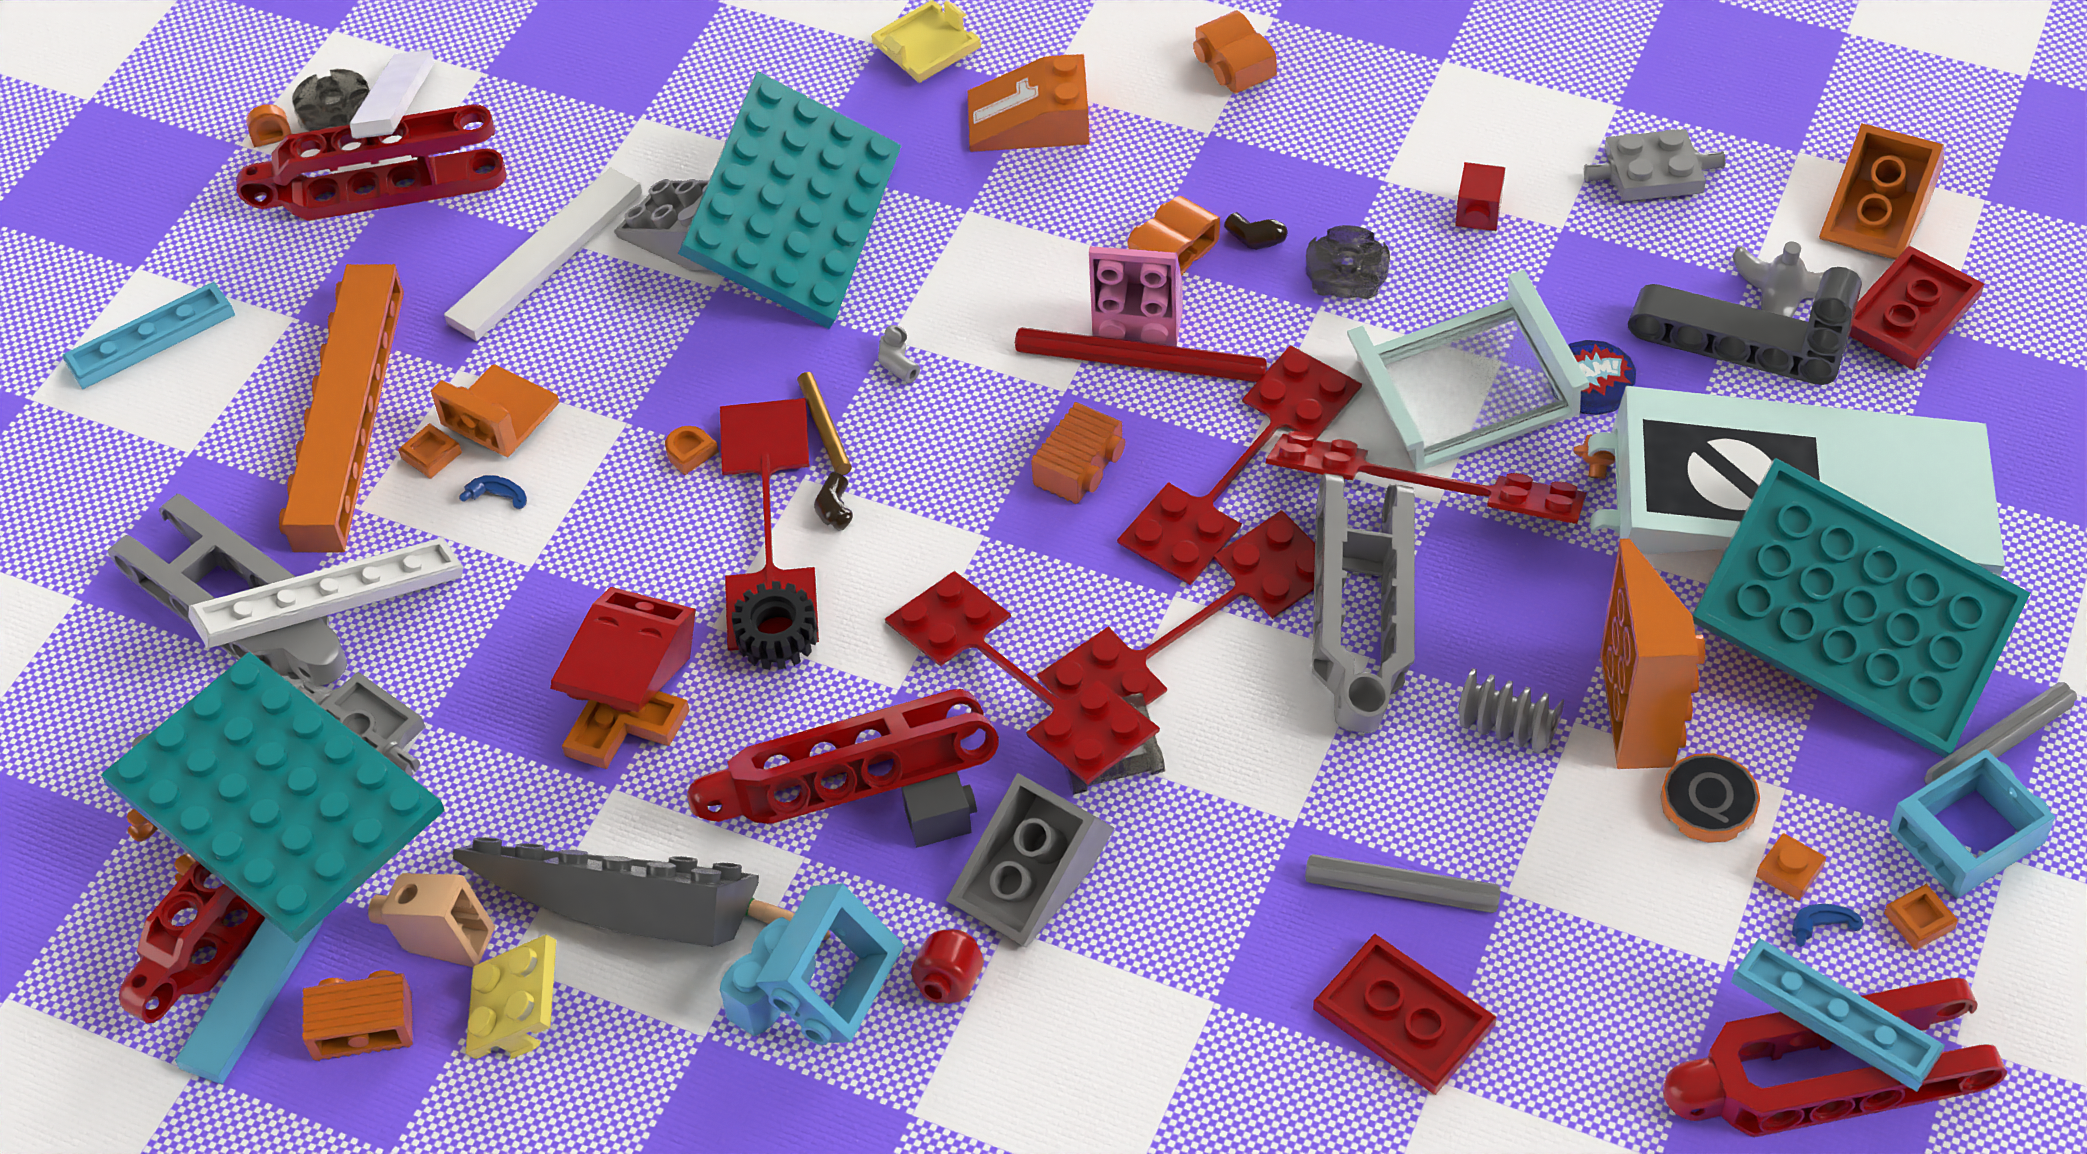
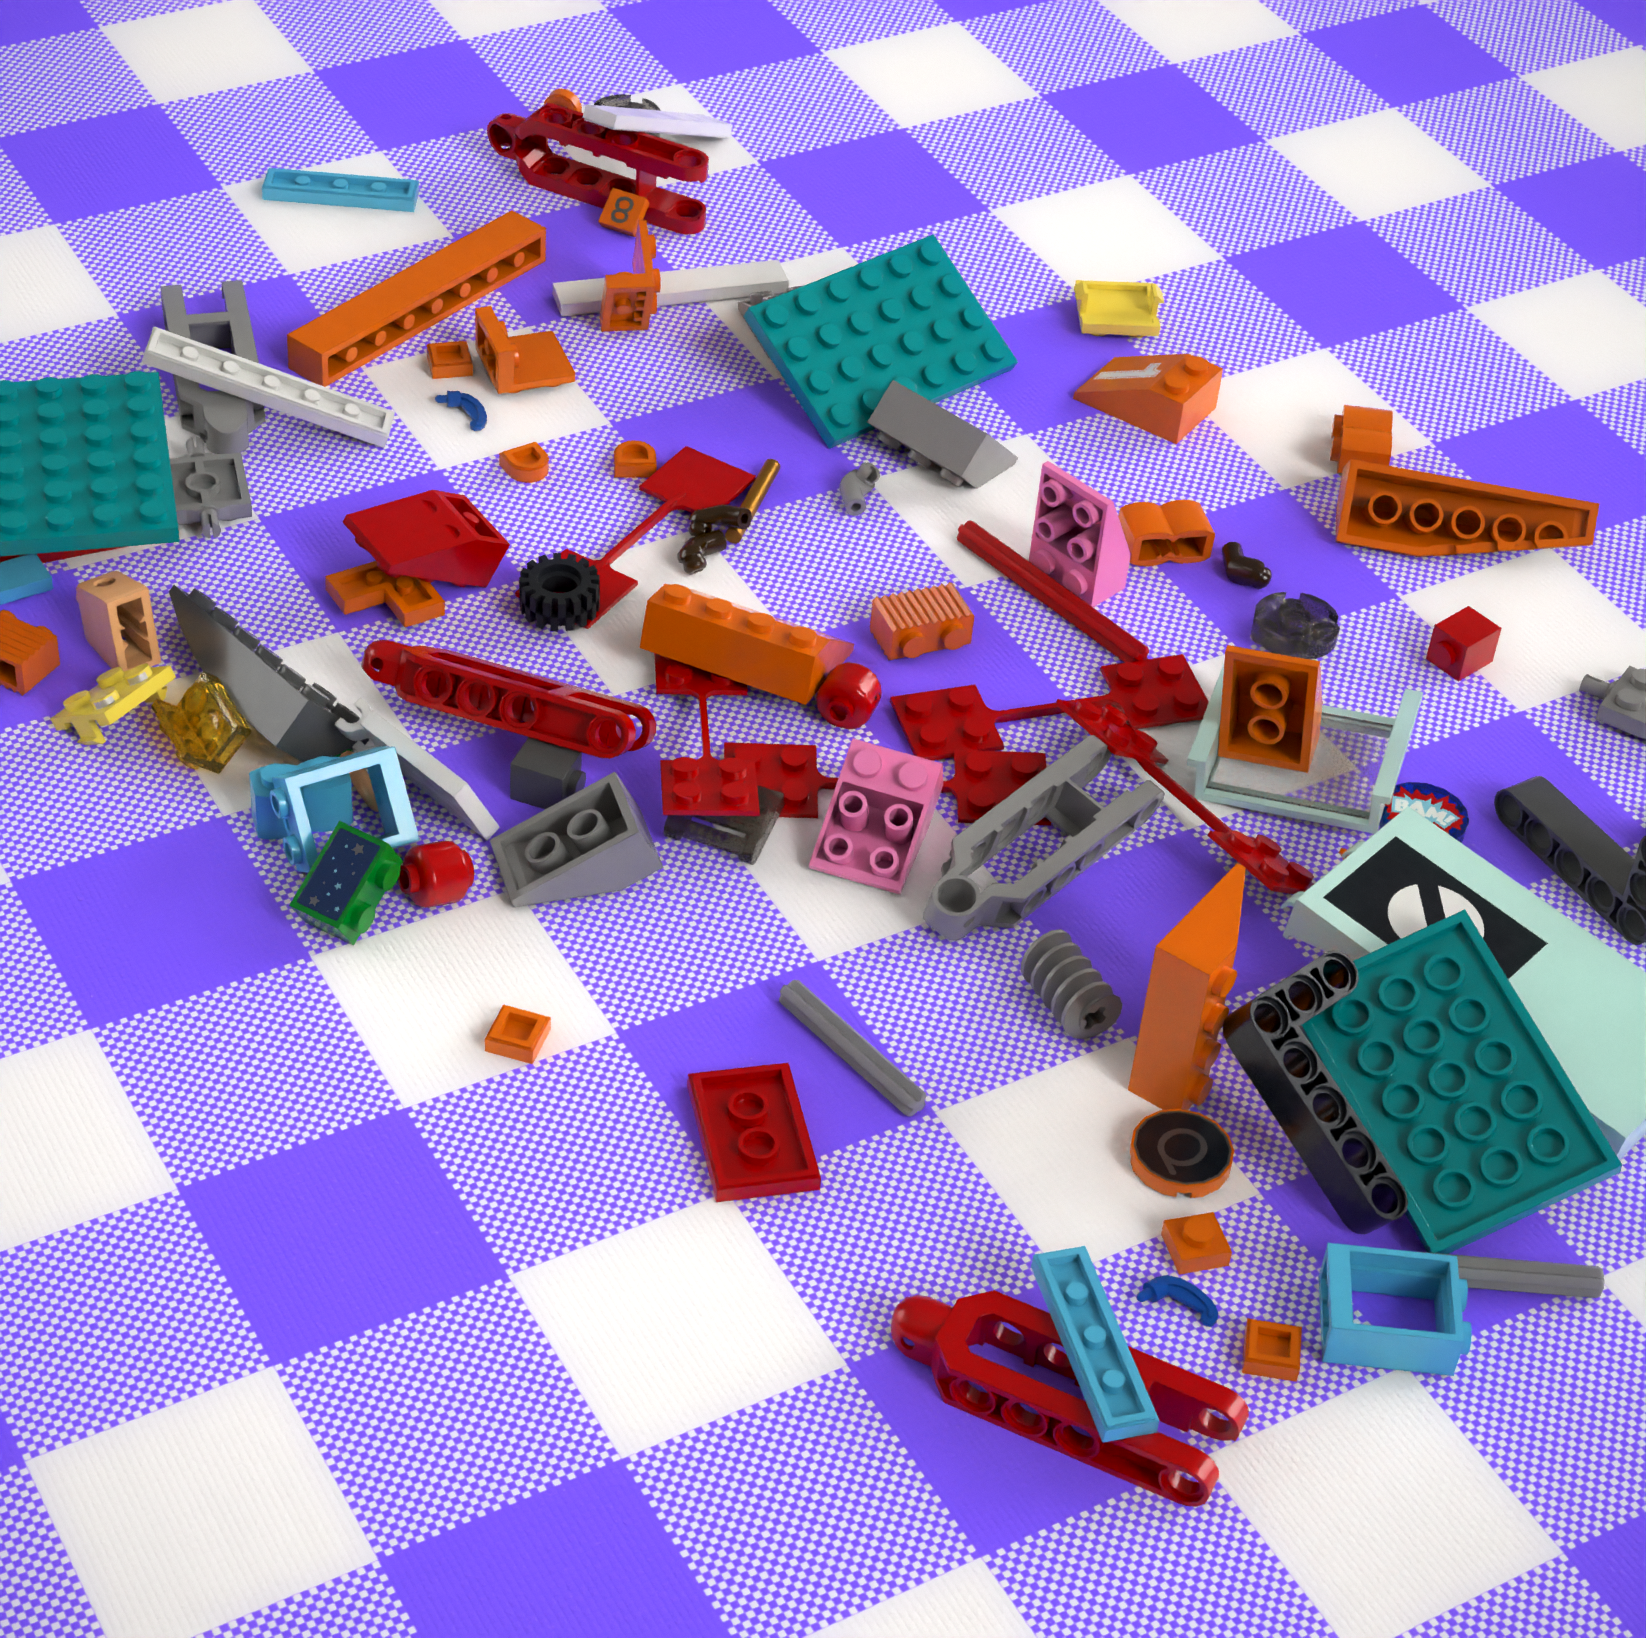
camera: 30 degrees right, 10 degrees down
(432, 201) = (623, 212): none -> orange tile
(545, 272) = (631, 297): none -> orange bracket
(601, 512) = (525, 463): none -> orange tile
(613, 965) = (203, 725): none -> clear yellow bracket
(819, 459) = (719, 515): none -> dark brown arm
(859, 880) = (421, 769): none -> white tile
(900, 1031) = (347, 883): none -> brick
(918, 265) = (938, 438): none -> light grey slope
(971, 569) = (740, 642): none -> orange slope
(1091, 560) = (852, 693): none -> red head
(1149, 1062) = (517, 1034): none -> orange tile
(1226, 662) = (878, 816): none -> bright pink slope
(1364, 85) = (1452, 516): none -> orange wedge
(1440, 363) = (1270, 708): none -> orange slope
(1783, 690) = (1306, 1097): none -> black beam

